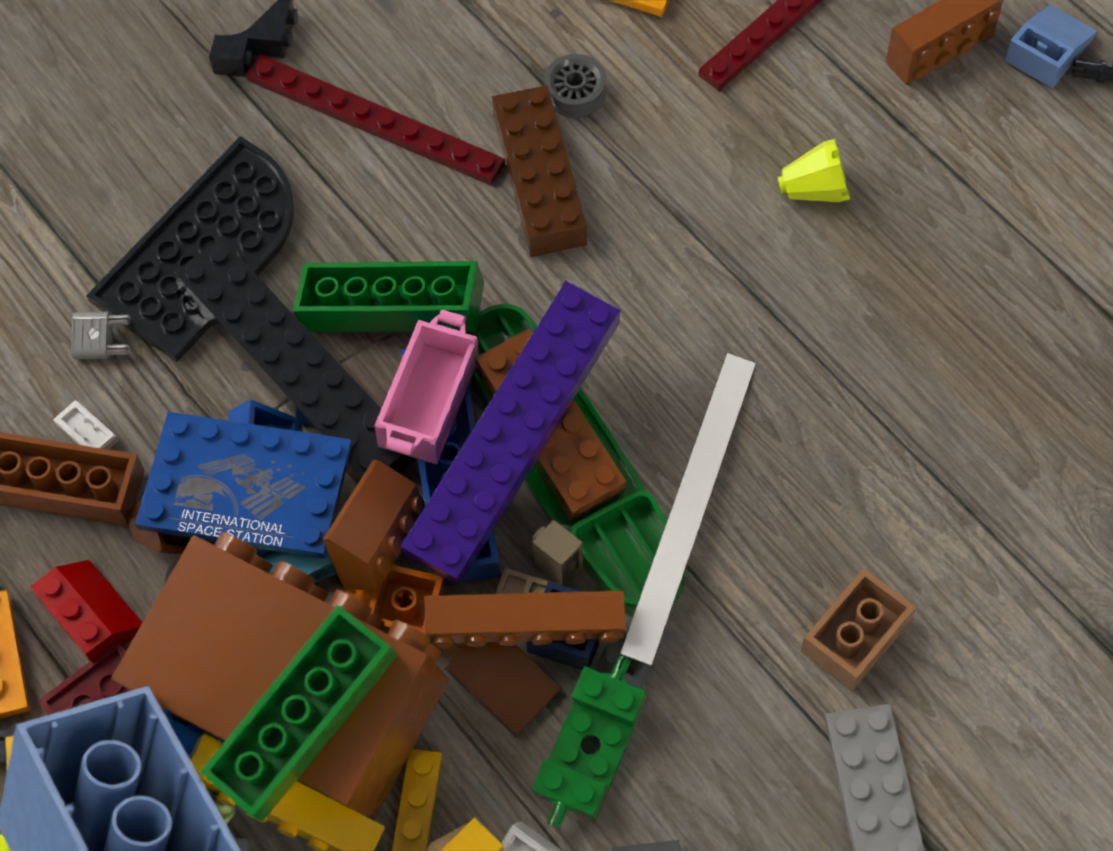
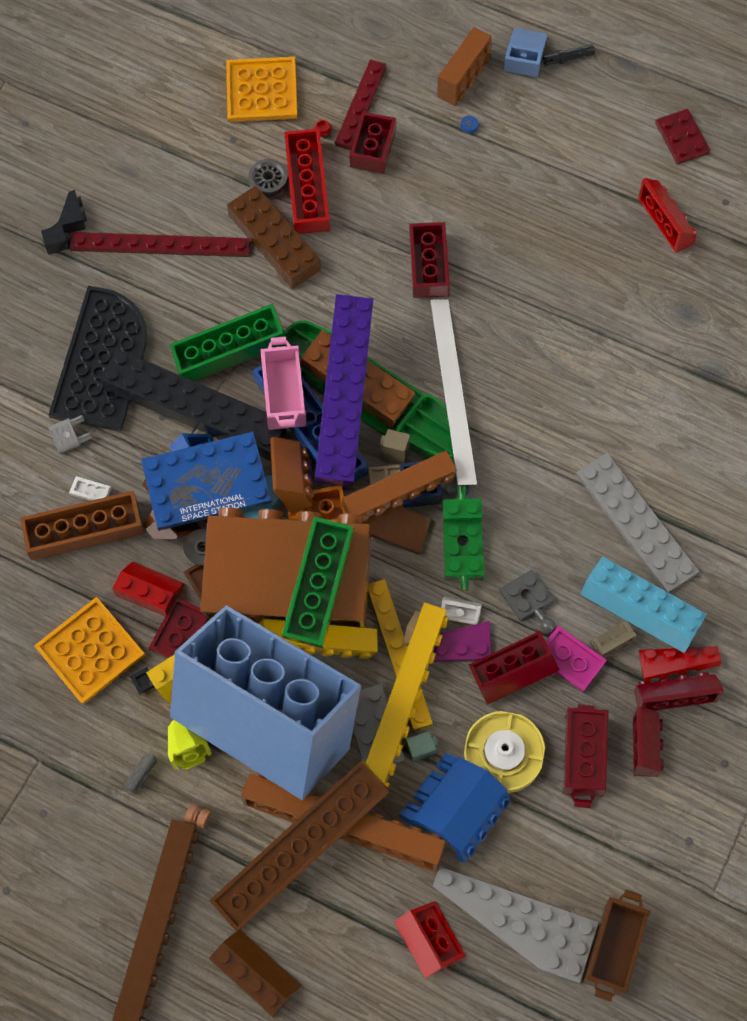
camera: 25 degrees left, 5 degrees up
(626, 109) = (307, 181): none -> red brick
(691, 43) = (324, 127): none -> red plate
(751, 292) = (429, 259): none -> dark red brick
(753, 89) = (373, 142): none -> dark red brick
(816, 175) = (433, 179): neon yellow cone -> none
(858, 629) = (573, 420): medium nougat brick -> none
(914, 118) = (469, 124): none -> blue tile

